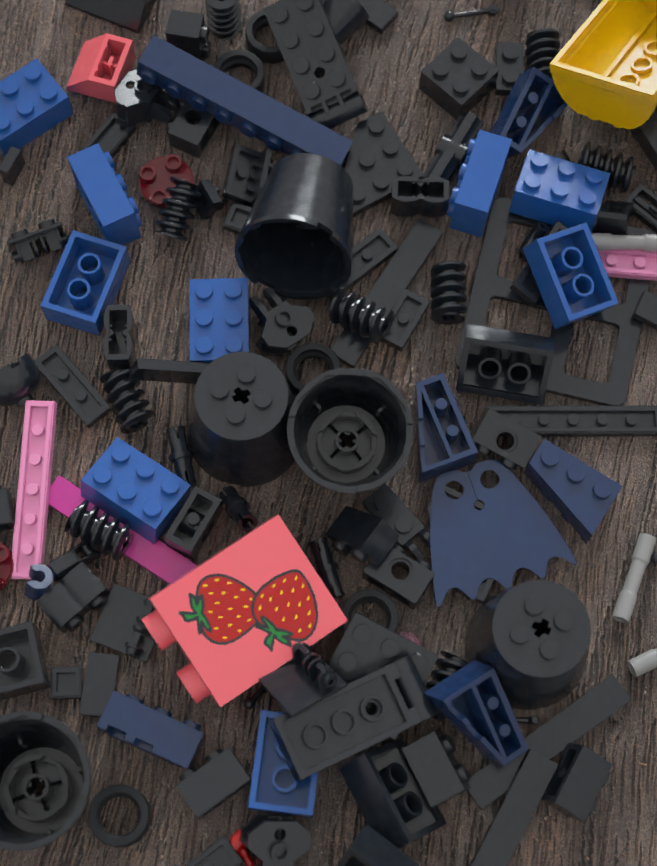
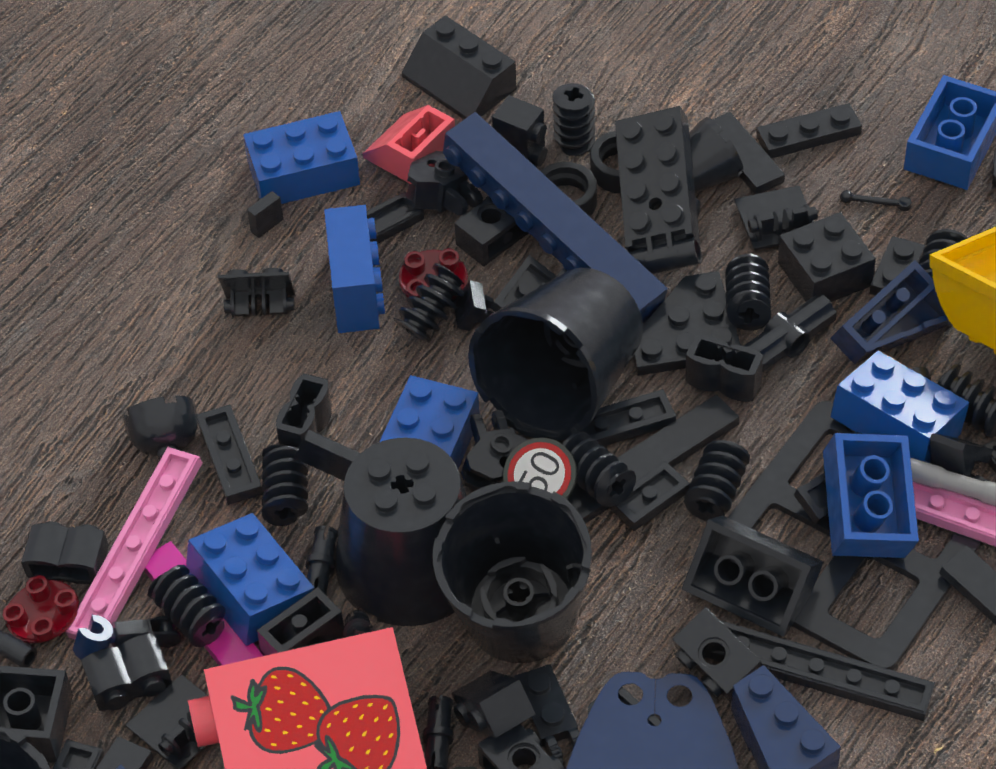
camera: 25 degrees right, 20 degrees down
(85, 282) = (291, 341): blue brick -> none
(322, 334) = (544, 465): none -> piece
(405, 50) = (774, 214): none -> black hinge
(412, 125) = (748, 292): none -> black piece
(440, 429) = (639, 623): dark blue wedge -> none
(478, 182) = (802, 371): blue brick -> none

